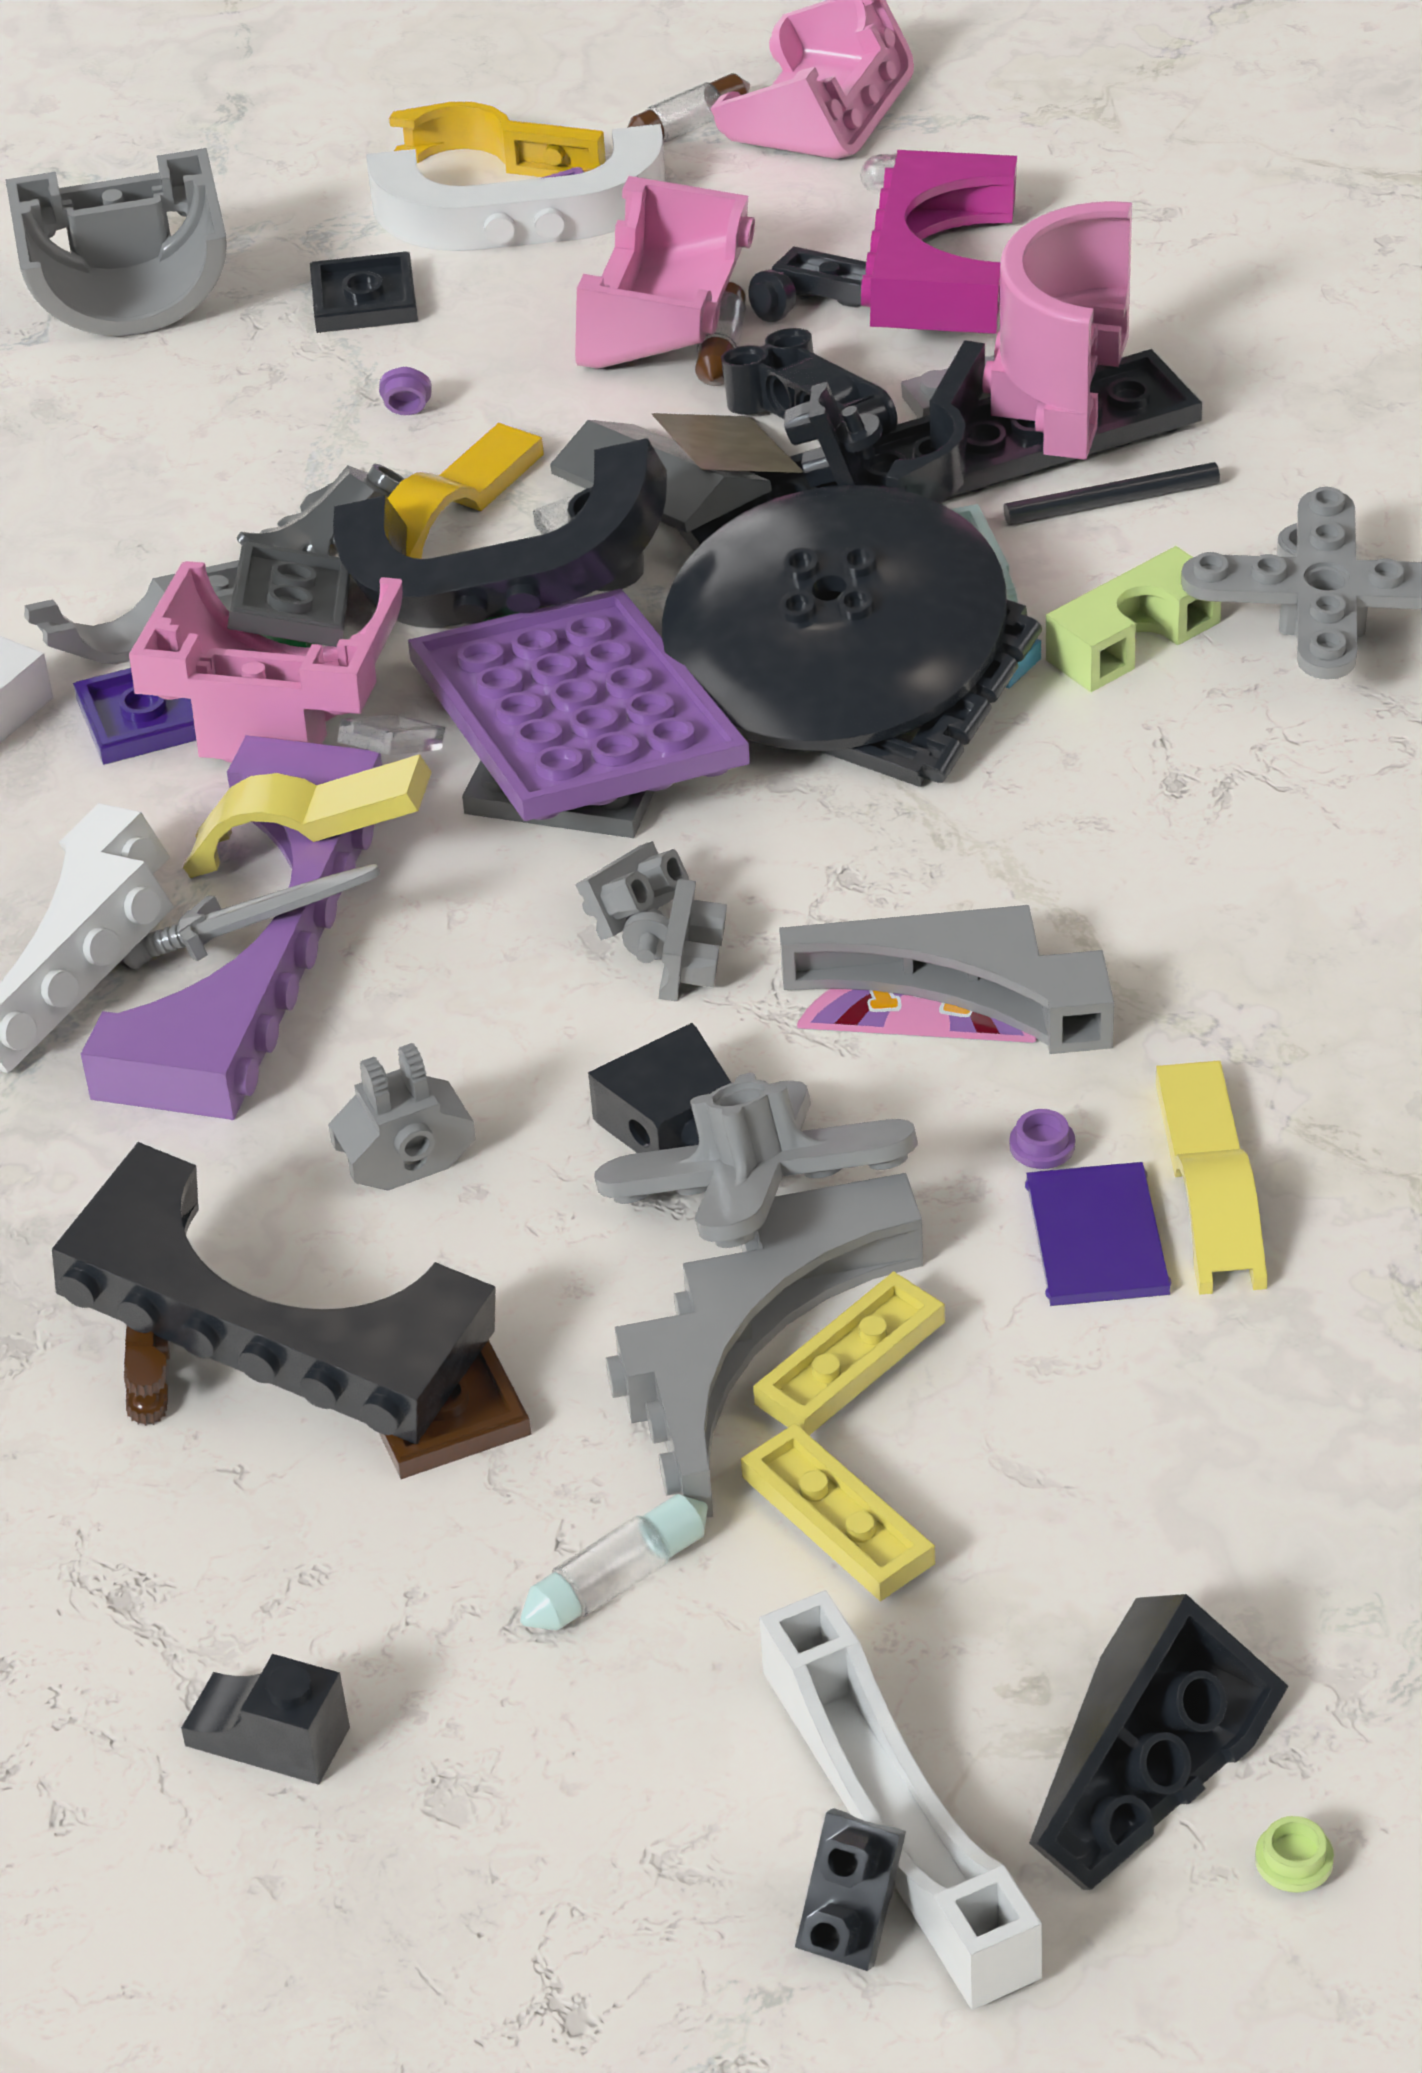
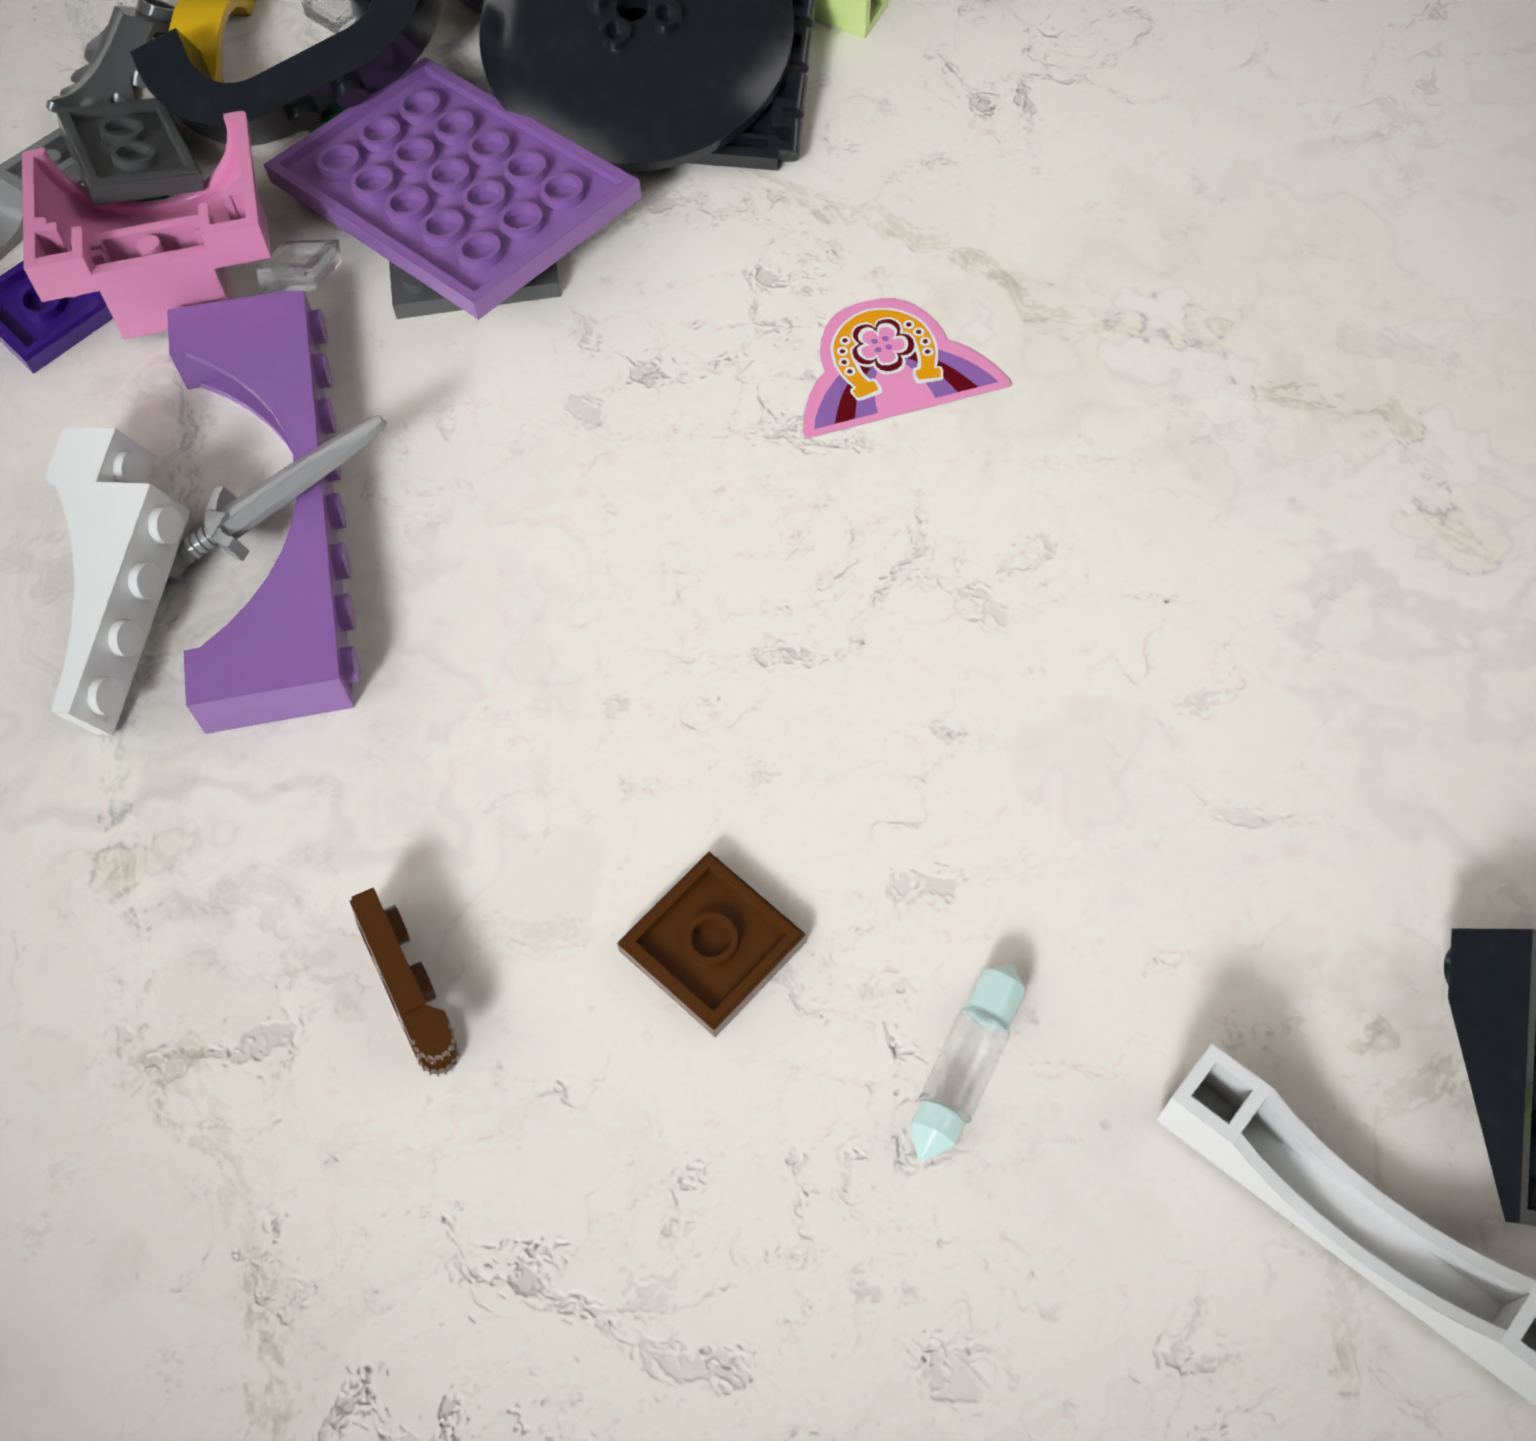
camera: 25 degrees left, 20 degrees up
(274, 1720) = (746, 1372): black arch -> none
(311, 808) = (278, 370): light yellow piece -> none
(370, 1361) = (378, 934): black arch -> none
(398, 1121) = (529, 671): light grey hinge -> none
(630, 886) = (601, 353): light grey hips -> none
(649, 1091) = (751, 556): black torso -> none
(654, 937) = (662, 390): light grey hips -> none
(736, 1303) = (918, 827): light grey arch -> none
(744, 1149) = (873, 593): light grey piece -> none
(838, 1512) = (1131, 927): light yellow plate -> none
(849, 1354) = (1047, 760): light yellow plate -> none
(850, 1889) = (1391, 1350): black hips -> none
(966, 960) = (931, 327): light grey arch -> none
(1042, 1139) = (1081, 482): medium lavender plate -> none
(1097, 1234) = (1171, 555): dark purple piece -> none
(1214, 1172) = (1256, 468): light yellow piece -> none

